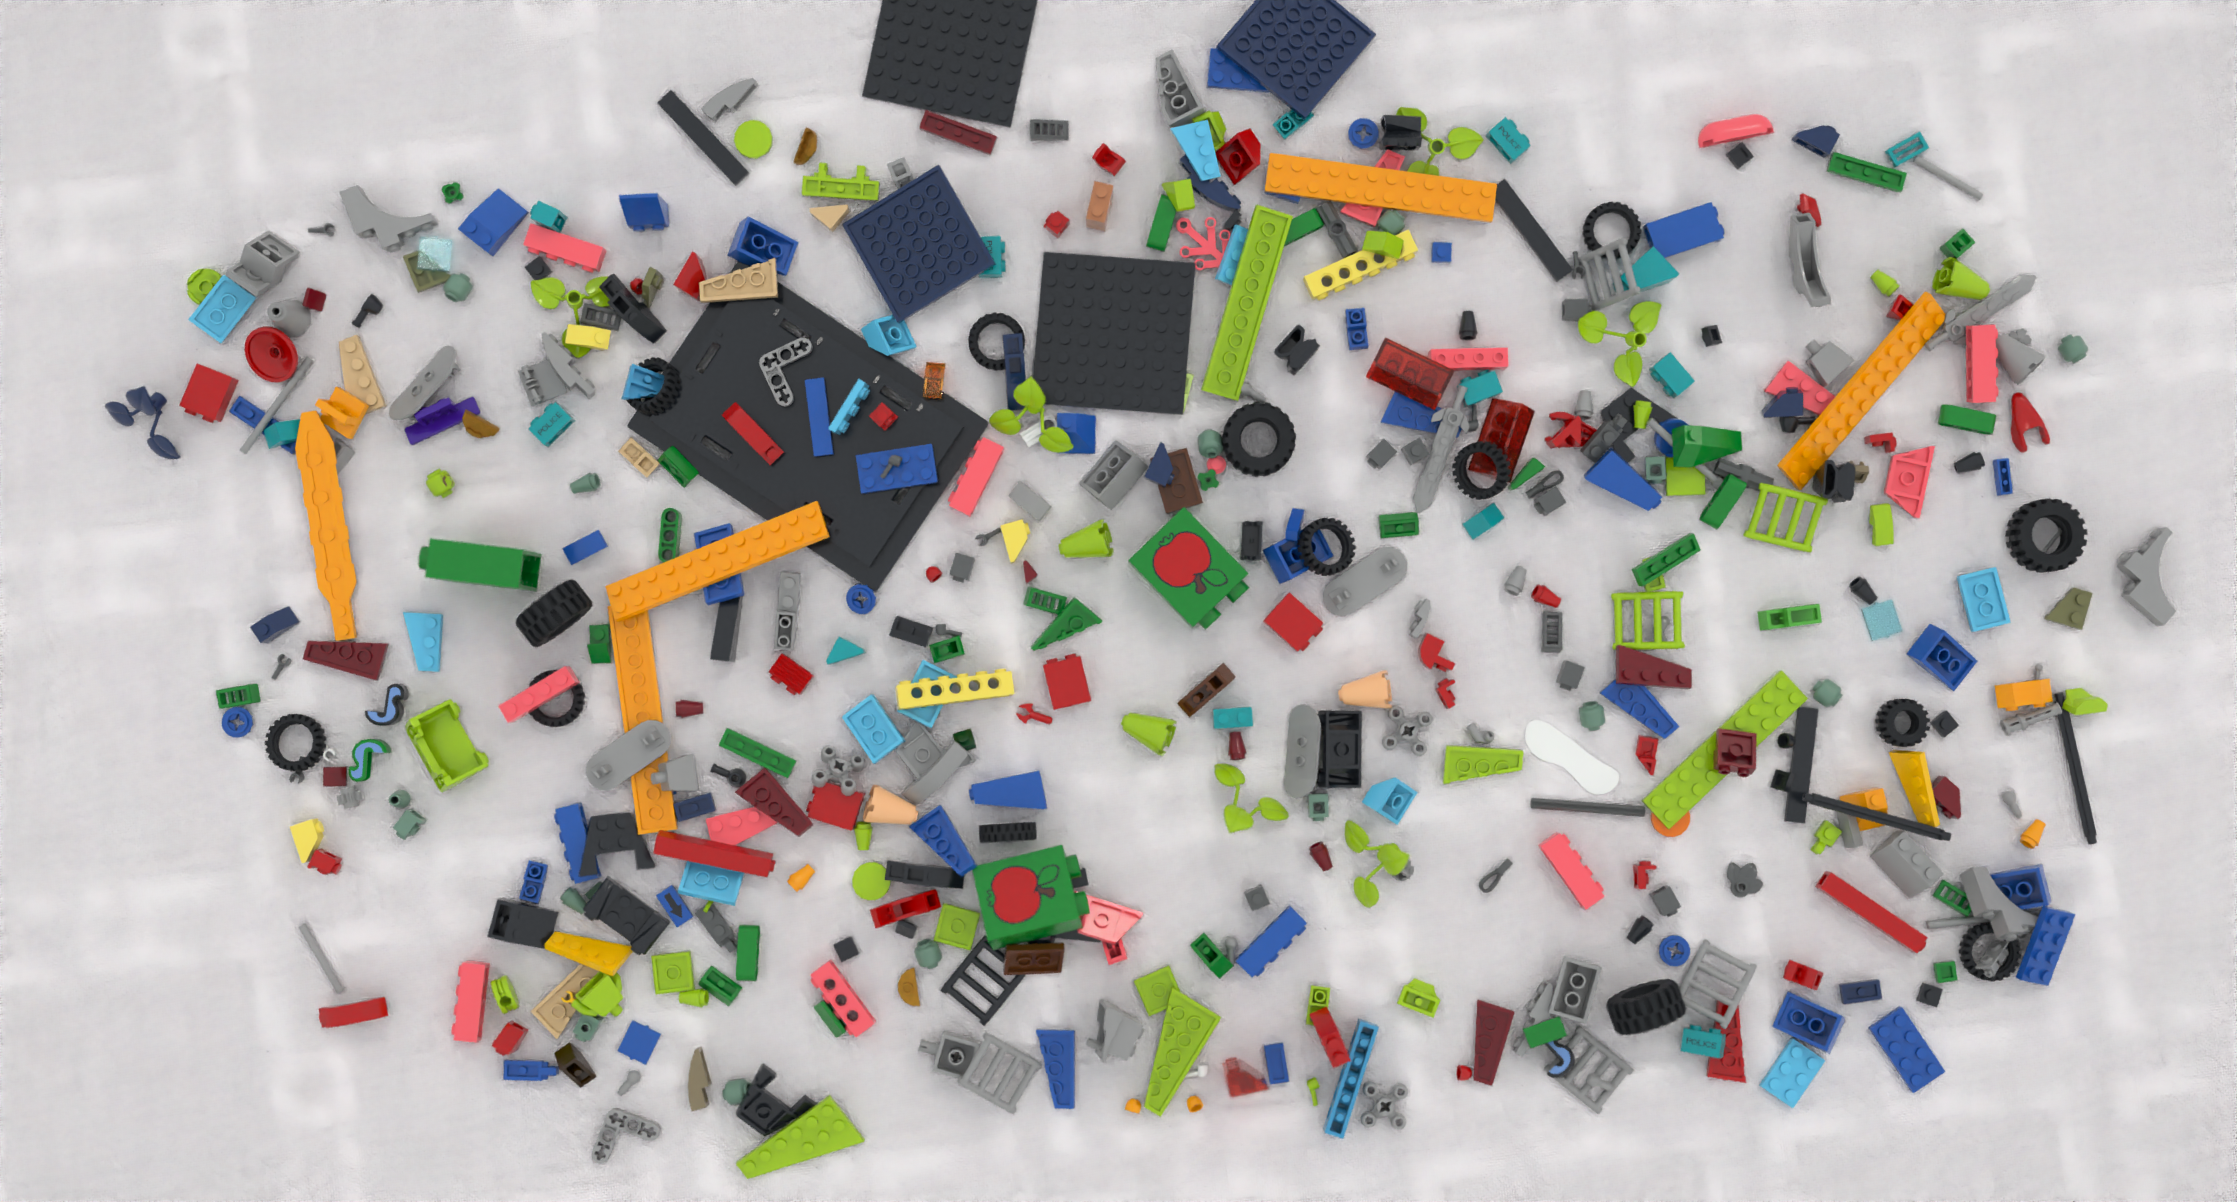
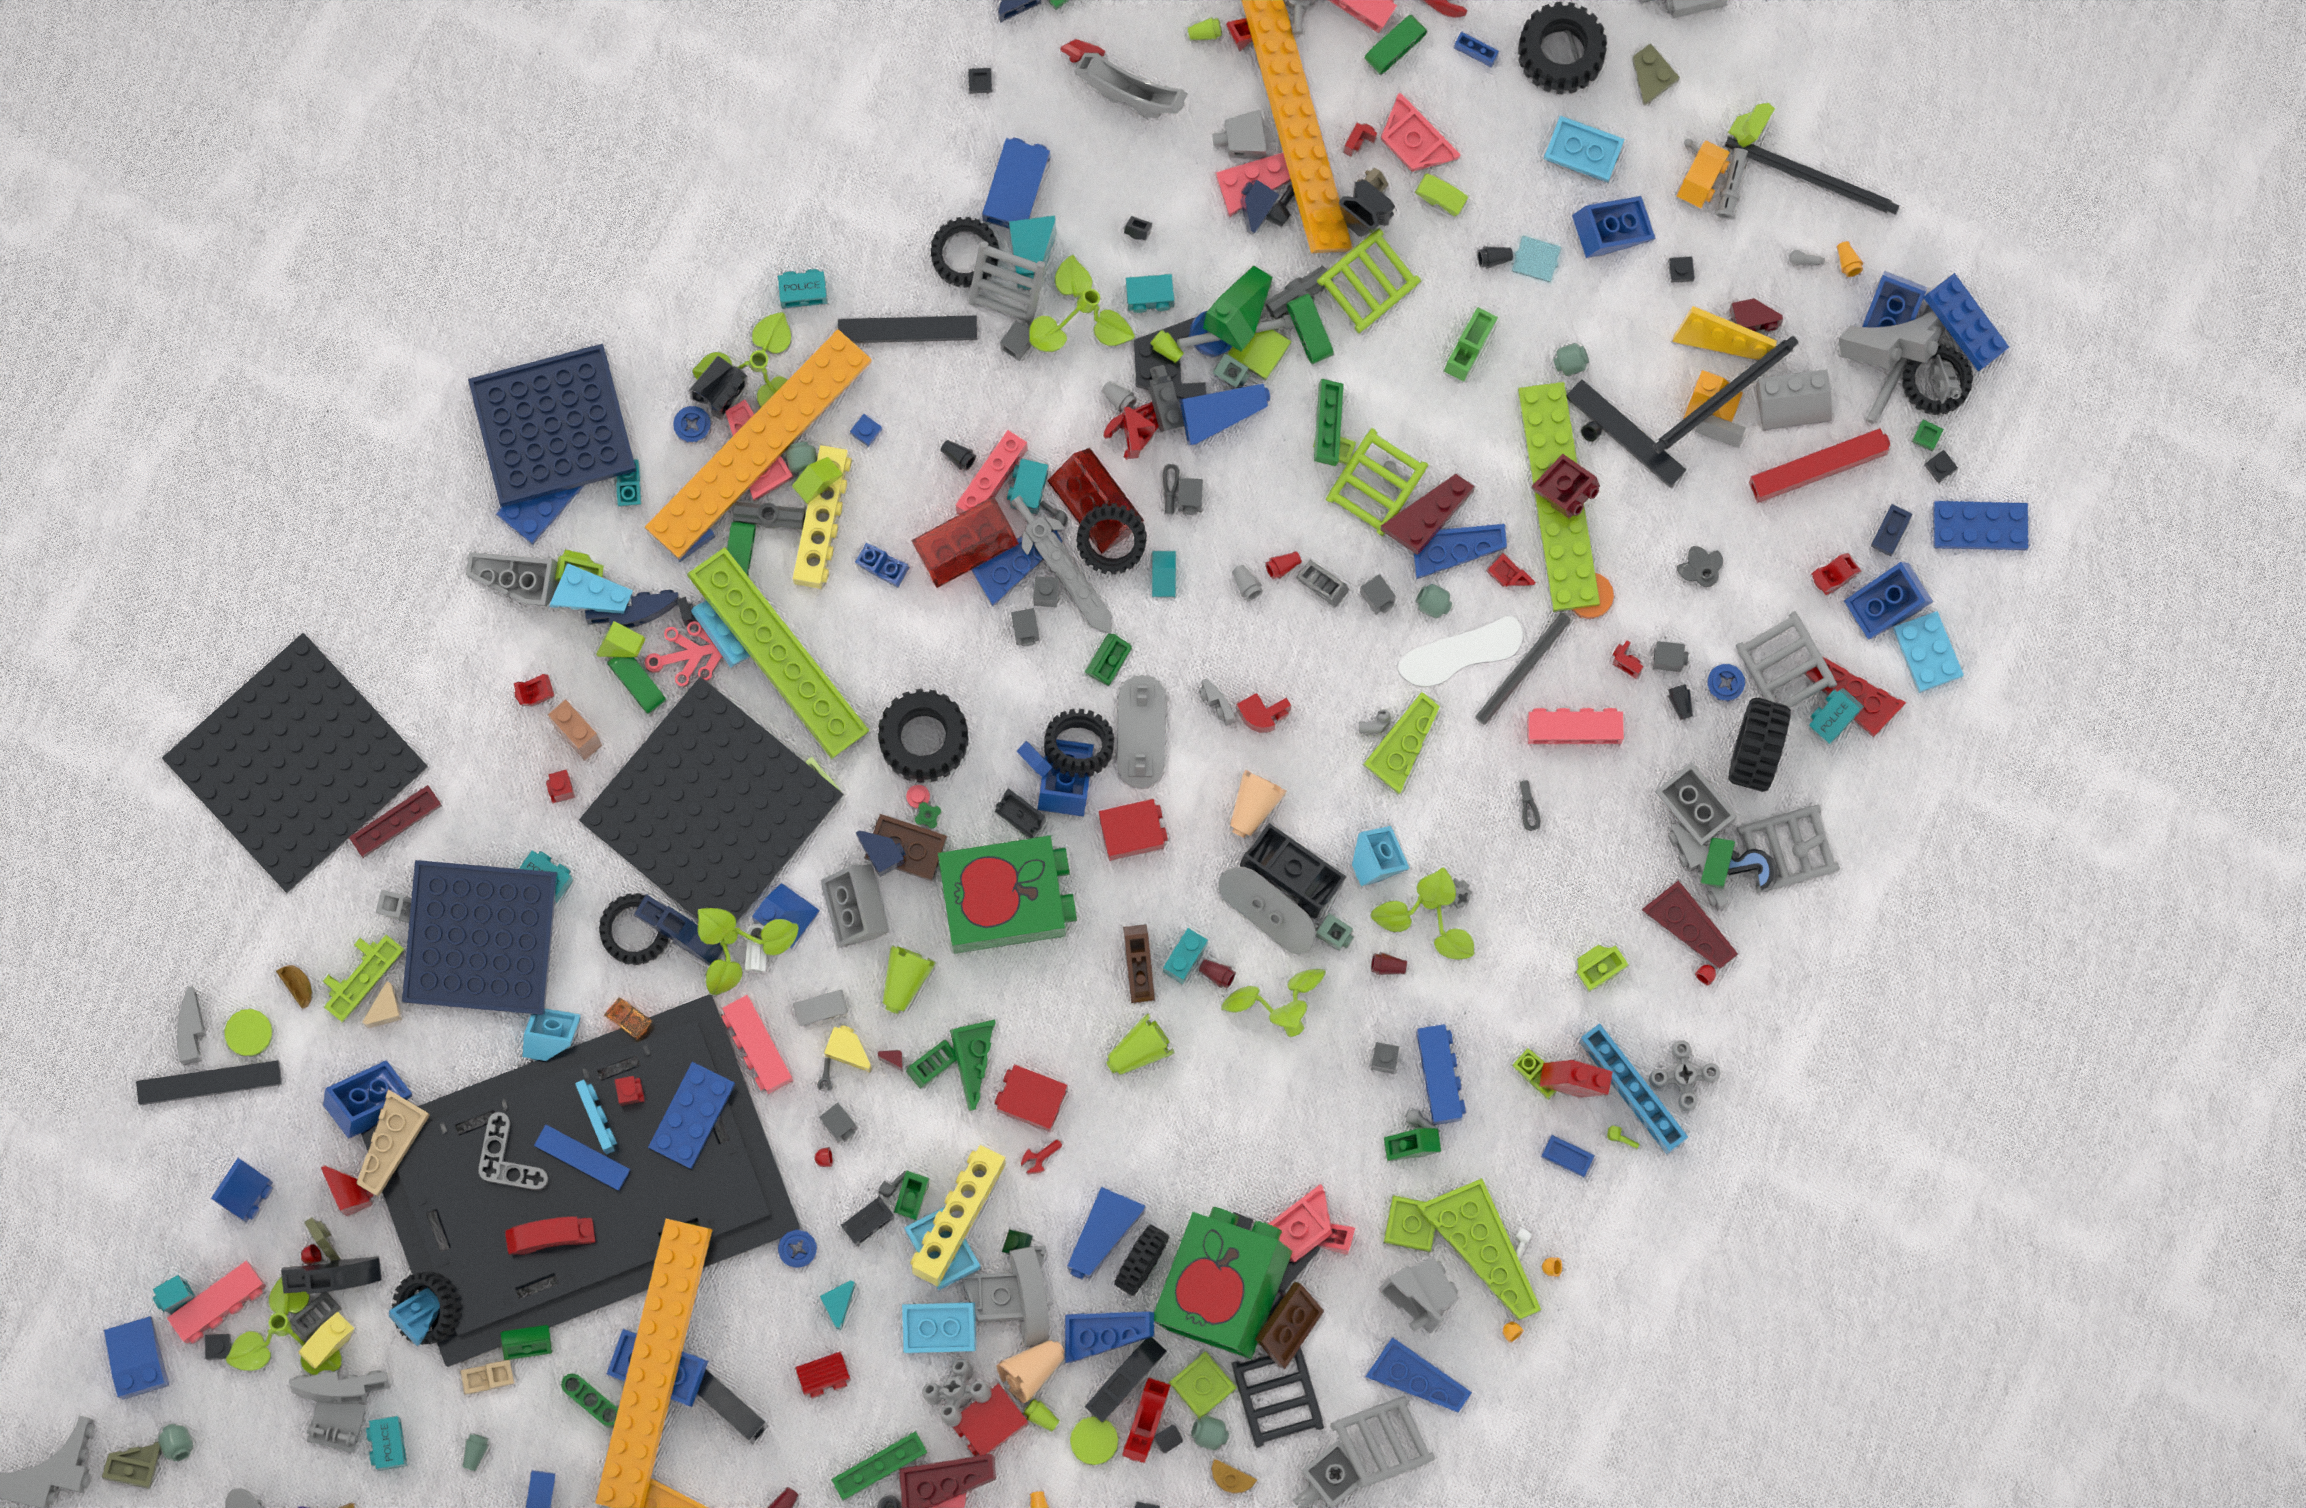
camera: 55 degrees left, 10 degrees down
(434, 254) = (123, 1442): clear light blue piece -> none
(447, 189) = (70, 1374): green plate -> none
(787, 610) = (755, 1332): light grey slope -> none
(893, 460) = (682, 1109): dark grey hand -> none
(1041, 137) = (461, 741): dark grey slope -> none
(1210, 443) = (893, 787): sand green head -> none
(1240, 155) = (626, 558): red slope -> none
(1242, 1078) = (1553, 1194): clear red slope -> none
(1247, 390) = (866, 714): light grey piece -> none
(1296, 350) = (861, 636): black piece -> none
(1412, 738) = (1311, 792): light grey gear -> none
(1446, 696) = (1313, 730): red bracket -> none
(1531, 468) = (1145, 492): green slope -> none
(1577, 268) = (979, 309): dark grey hand -> none
(1734, 130) = (951, 68): coral brick -> none
(1782, 781) = (1628, 461): black plate -> none
(1826, 835) = (1713, 457): lime plate -> none
(1917, 727) = (1647, 325): black tyre -> none
(1965, 912) = (1882, 376): green slope -> none
(1969, 463) = (1440, 70): black cone -> none

